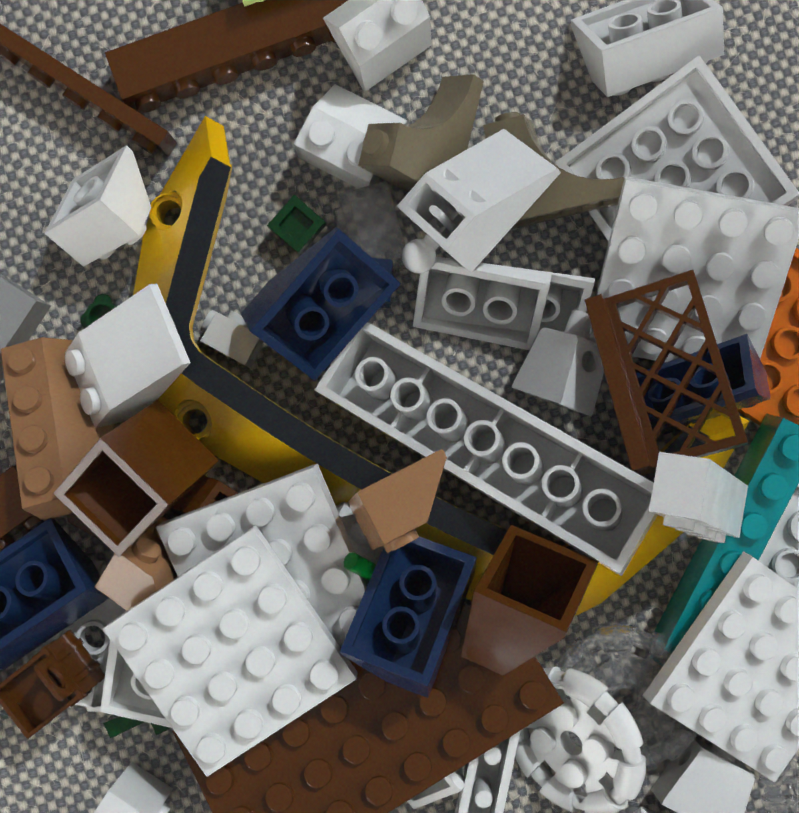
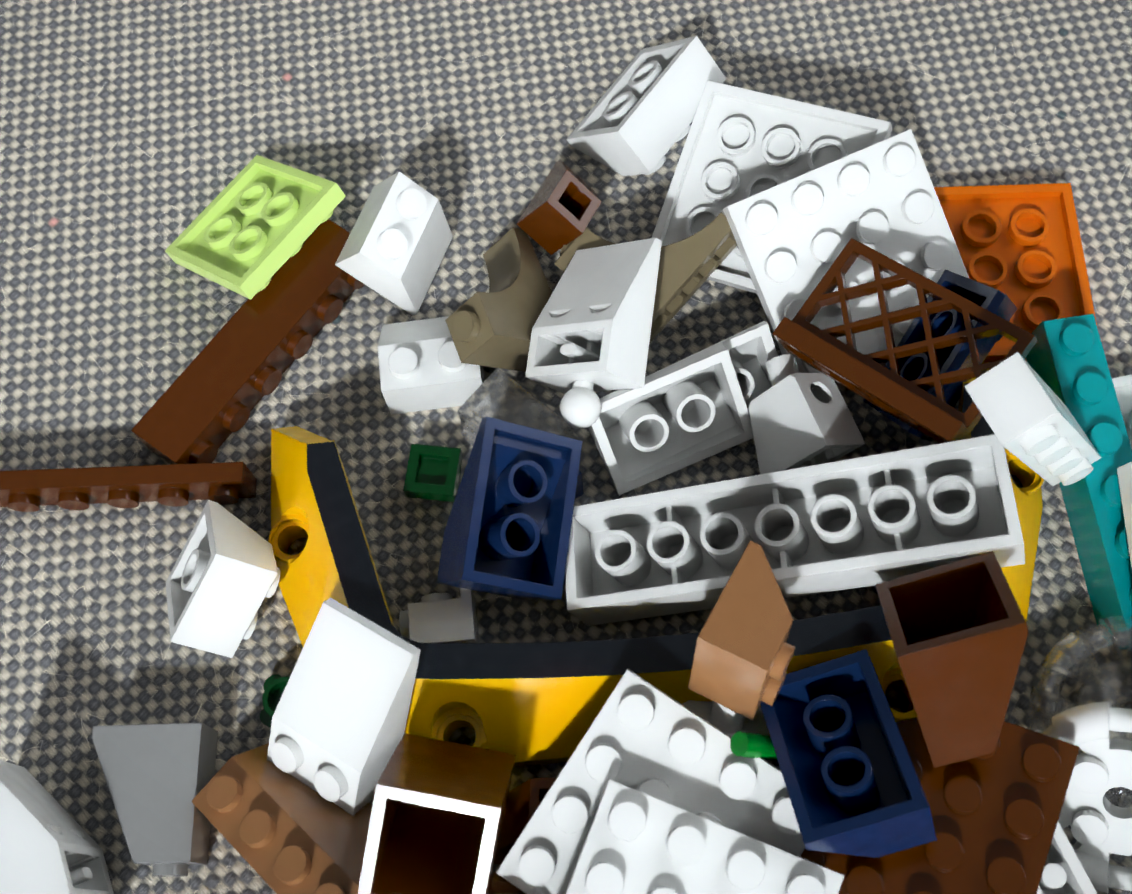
camera: 30 degrees left, 20 degrees down
(521, 81) = (559, 209): none -> reddish brown slope

